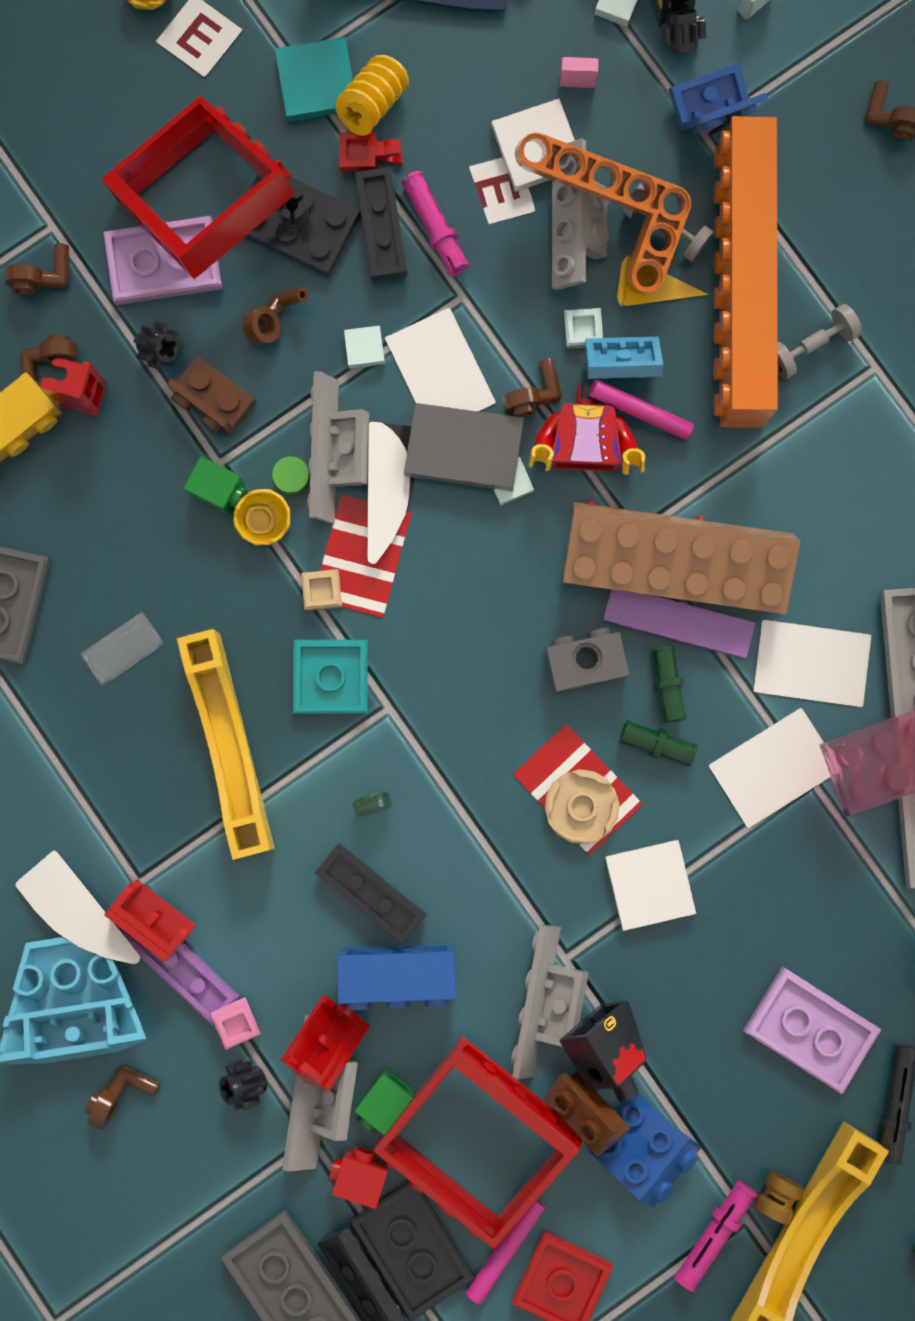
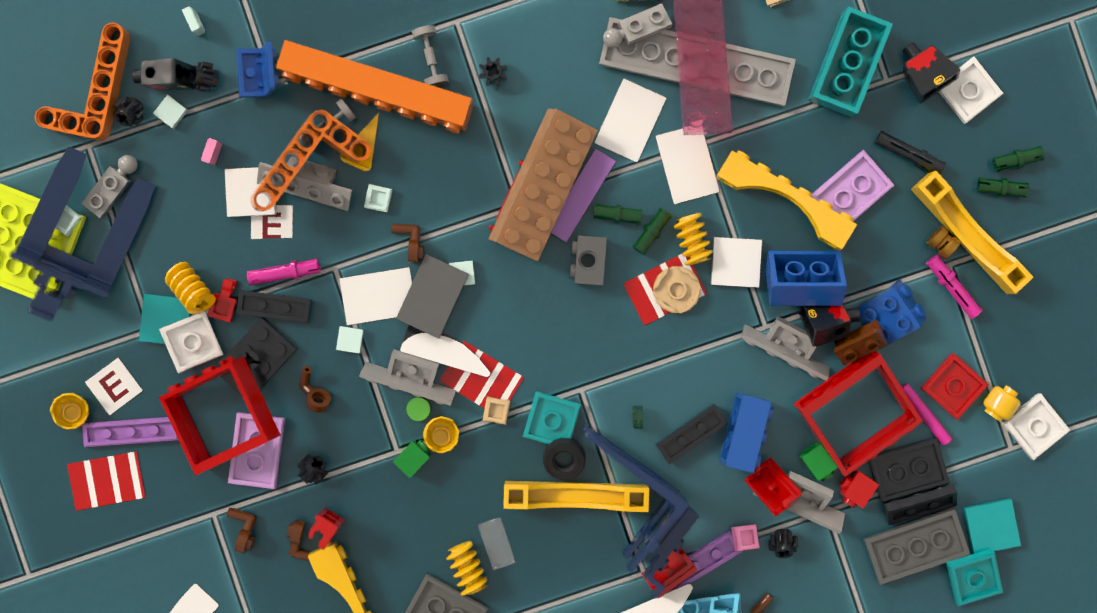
camera: 75 degrees left, 5 degrees up
(59, 63) = (106, 480): none -> red sticker
(71, 614) = (467, 568): none -> yellow piece
(137, 69) = (128, 432): none -> medium lavender tile
(211, 395) = (353, 443): reddish brown bracket -> none
(222, 895) = (671, 529): none -> dark blue piece
(294, 121) = (191, 342): none -> white tile
(298, 711) = (564, 445): none -> black tyre
(586, 438) = (449, 218): torso -> none
(623, 357) = (407, 180): dark azure bracket -> none
(640, 409) = (441, 179): dark pink piece -> none
(660, 997) = (805, 278): none -> blue brick
(665, 807) = (693, 239): none -> yellow piece
(751, 1010) = (829, 226): none -> yellow arch
(829, 433) = (490, 65): none -> black gear
(891, 1266) = (1002, 187): none -> dark green pin

